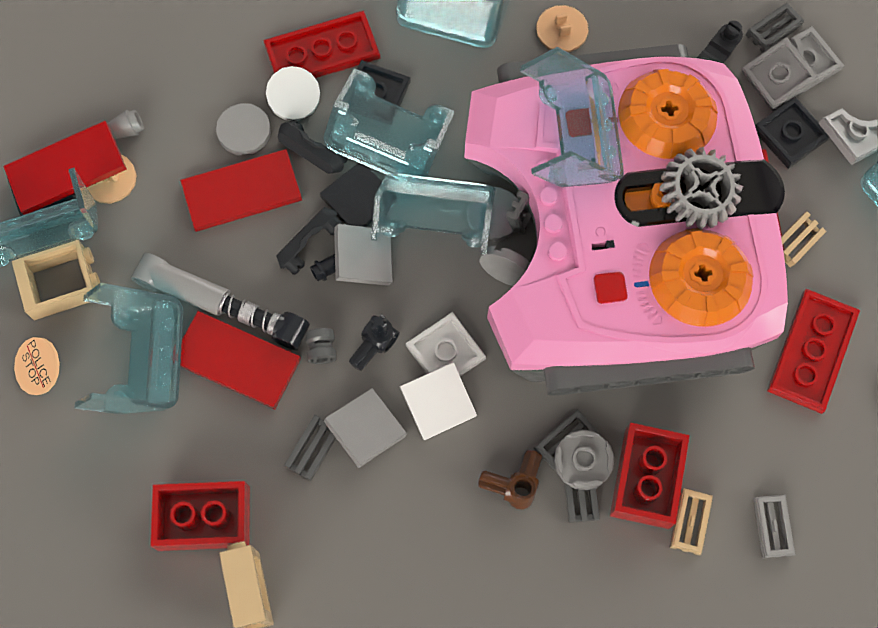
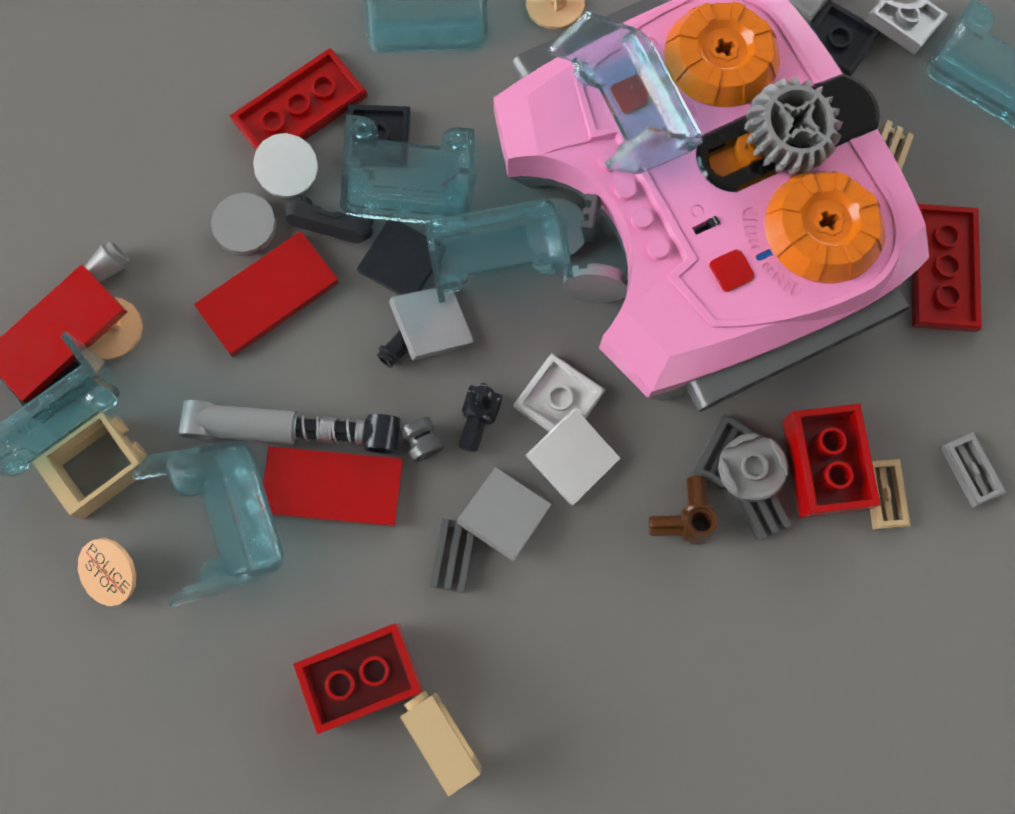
camera: 20 degrees left, 5 degrees up
(288, 256) = (348, 349): black piece -> none

